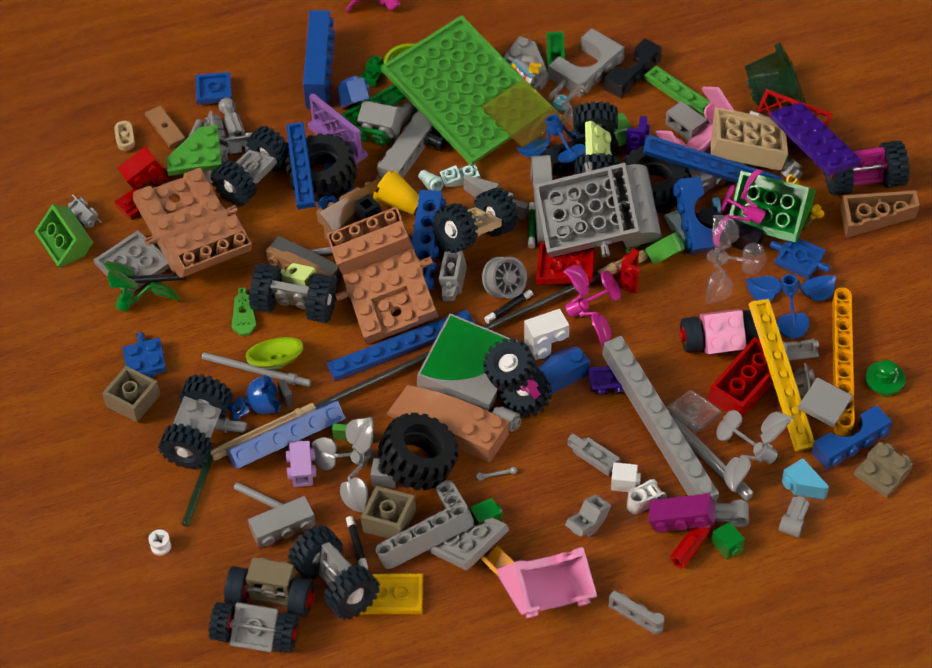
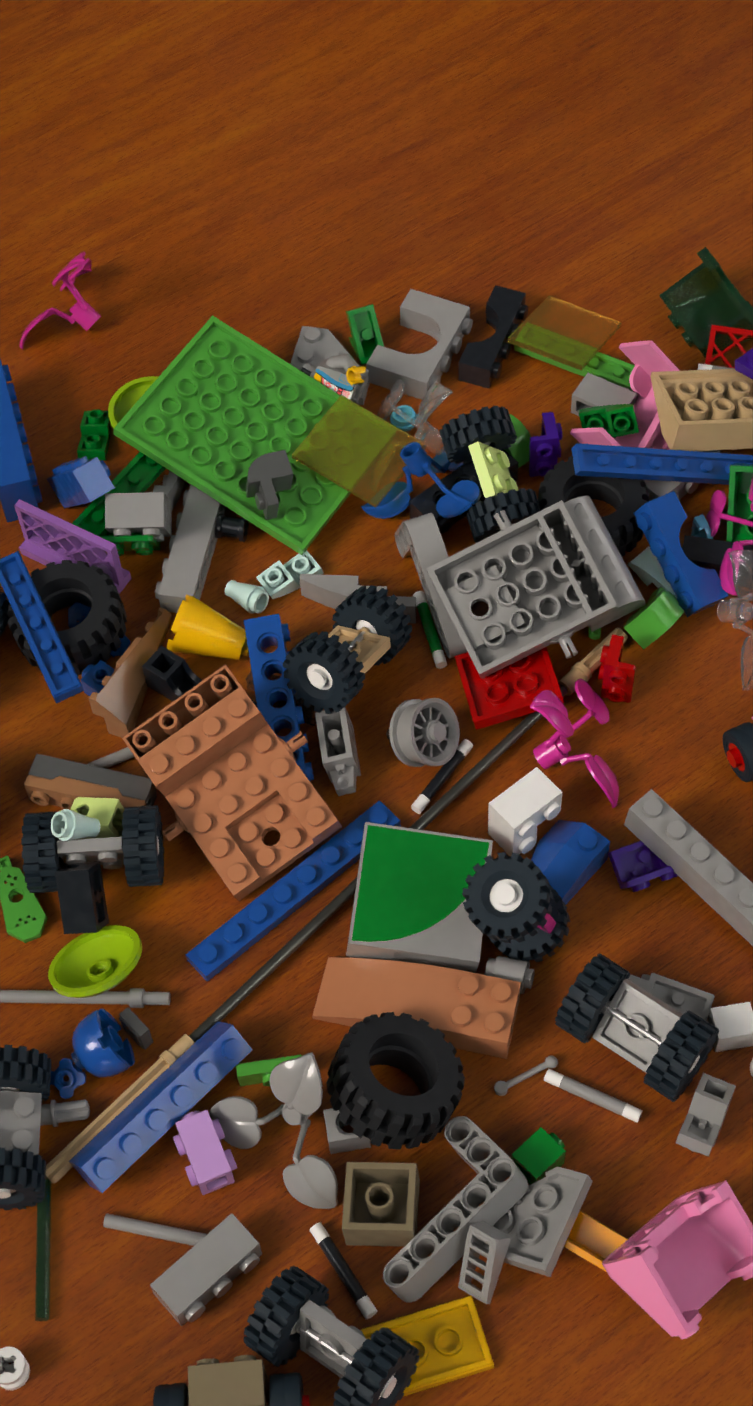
camera: 15 degrees left, 5 degrees up
(278, 317) = (82, 898): none -> black hinge
(282, 273) = (72, 825): none -> light aqua cone
(435, 549) = (498, 1245): none -> light grey slope
(462, 114) = (265, 478): none -> dark grey brick
(530, 493) = (593, 1095): none -> light grey bar
(565, 459) = (636, 1026): none -> black plate
(678, 75) = (564, 332): none -> clear yellow piece
(685, 131) = (615, 419): none -> green slope

